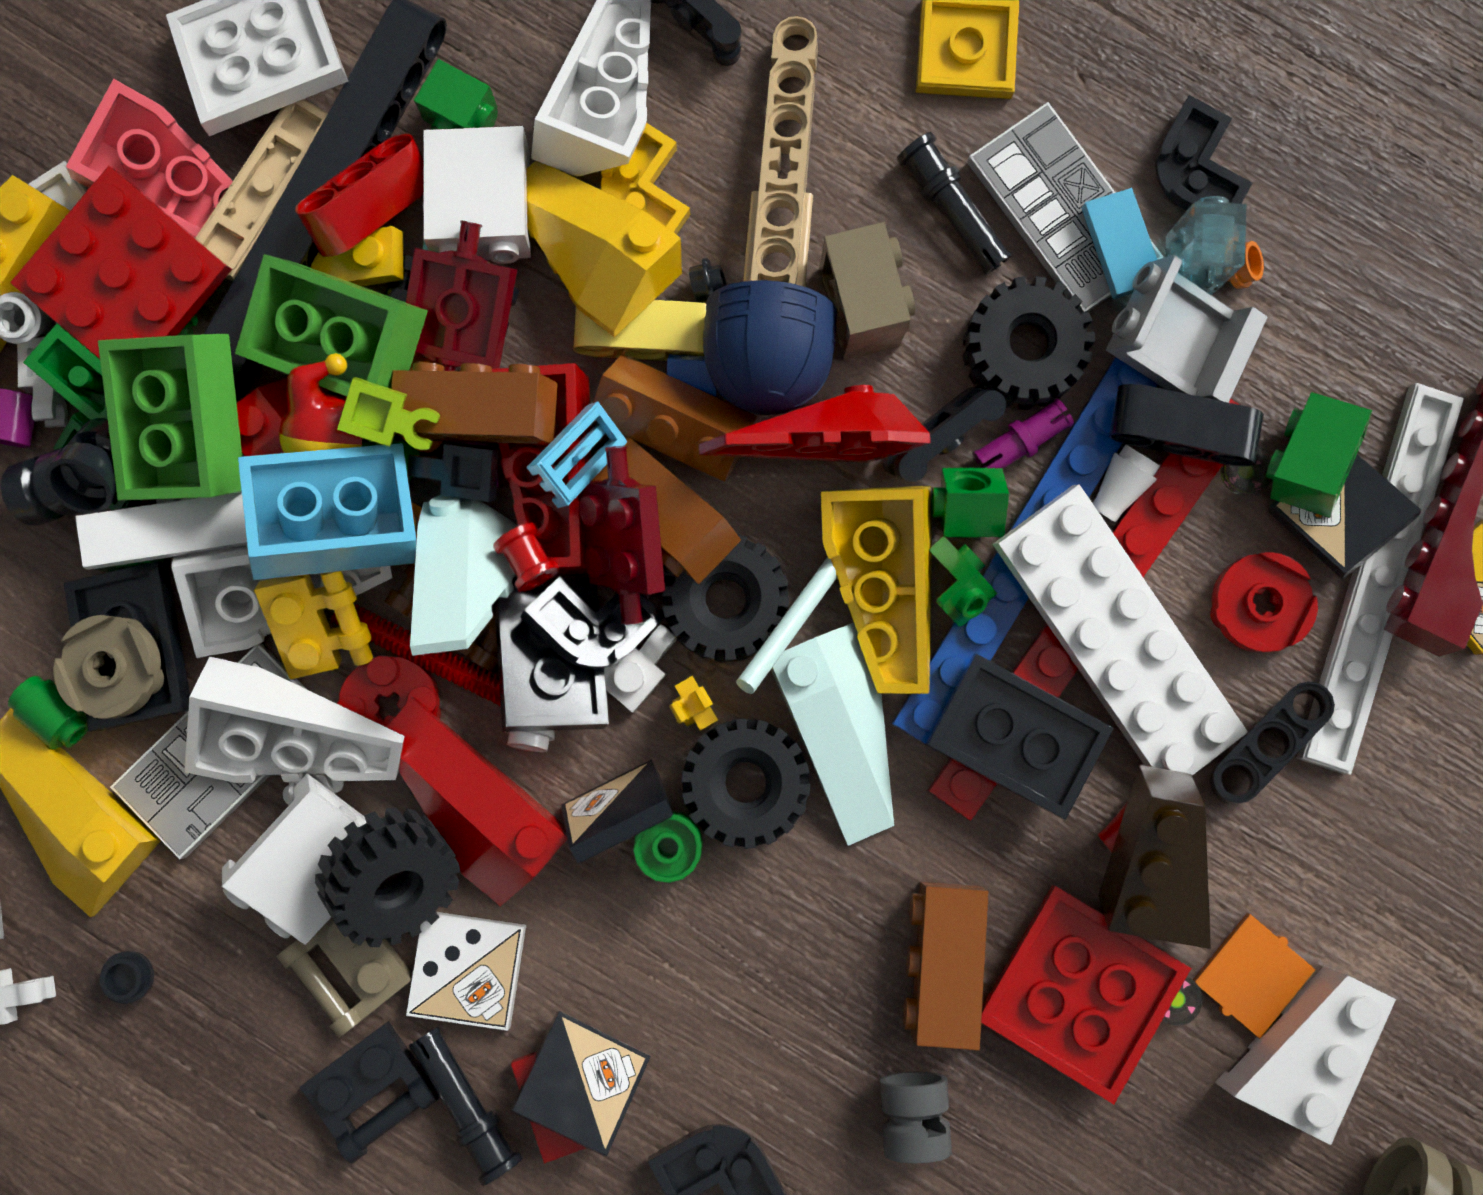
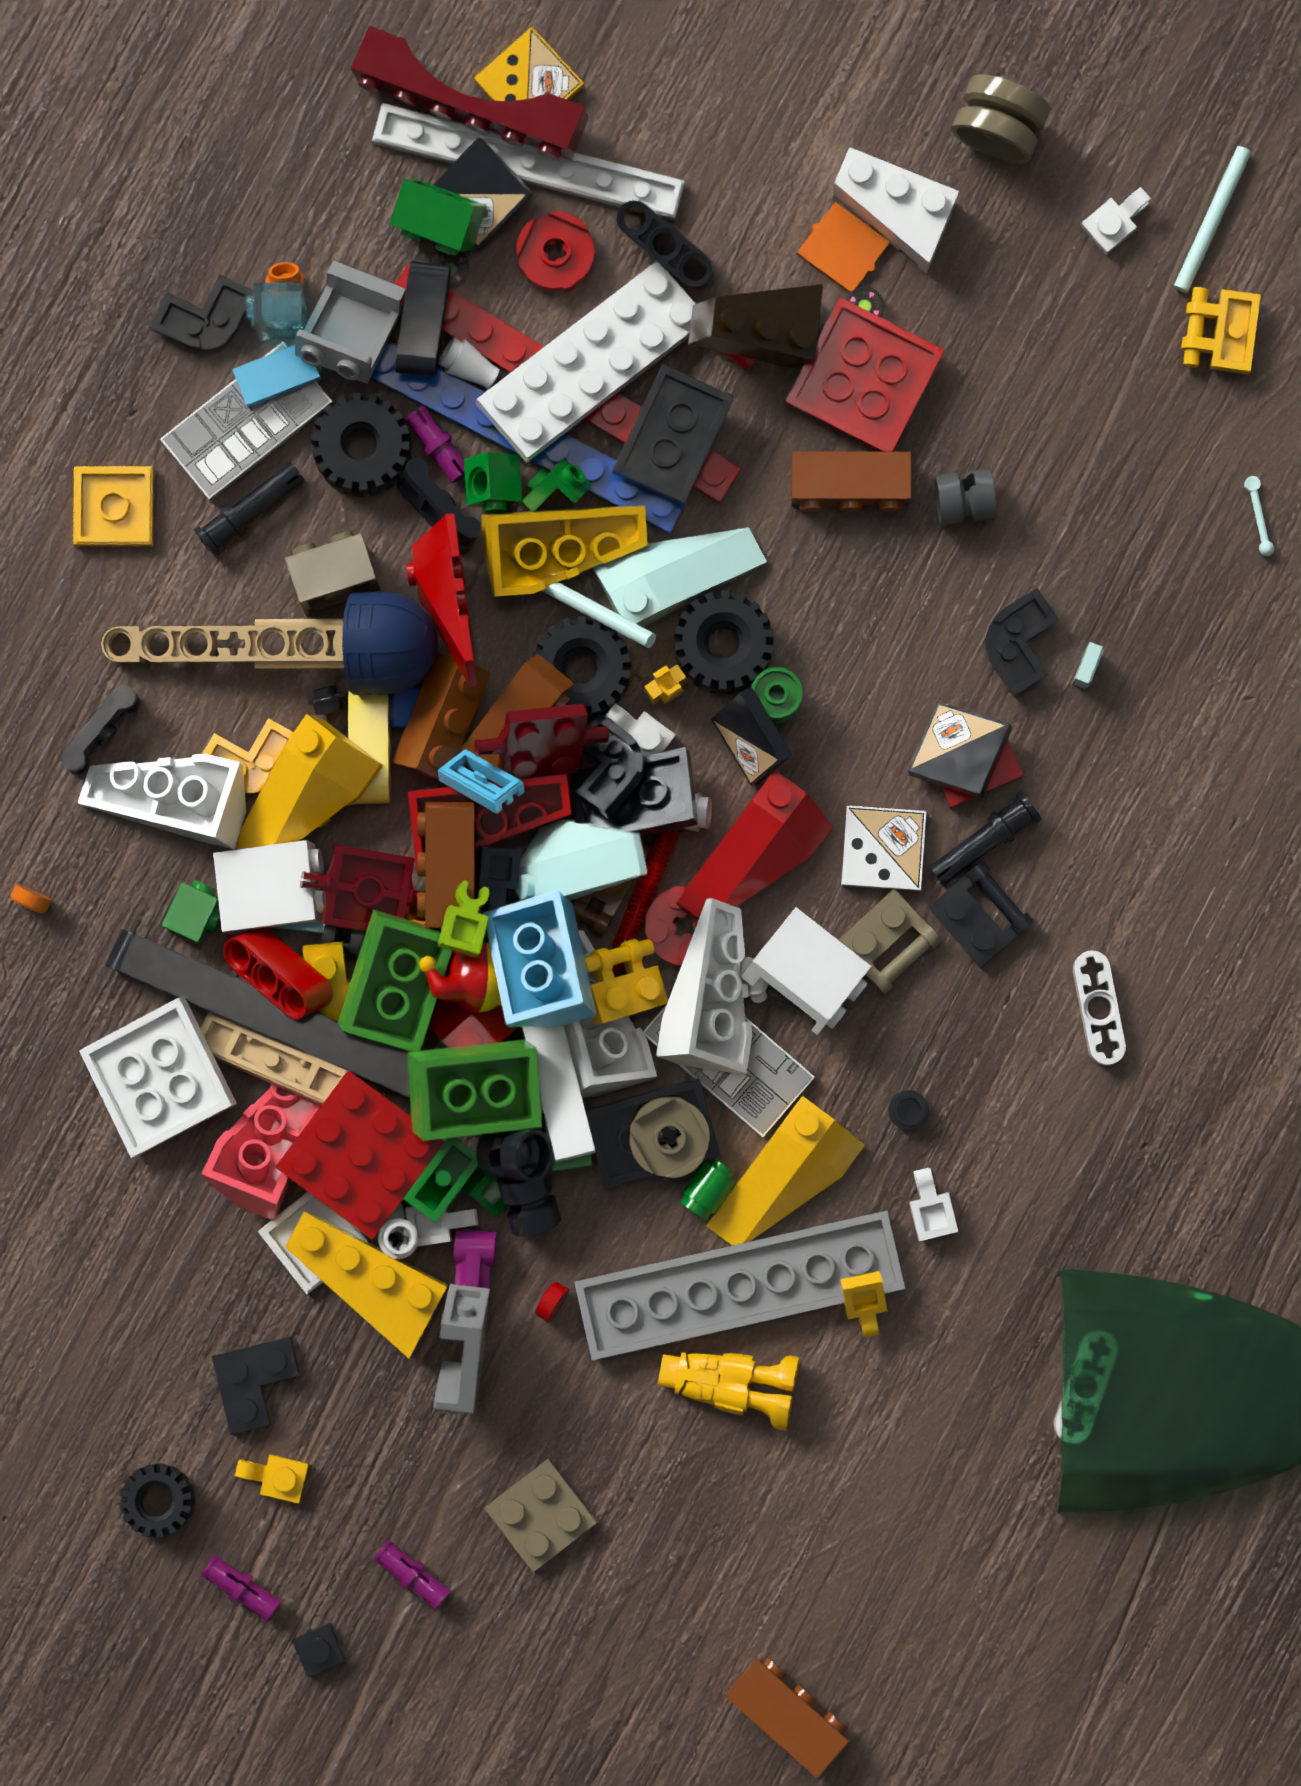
camera: 90 degrees left, 0 degrees up
(371, 856) = (814, 902): black tyre -> none
(526, 556) = (564, 812): red bush -> none

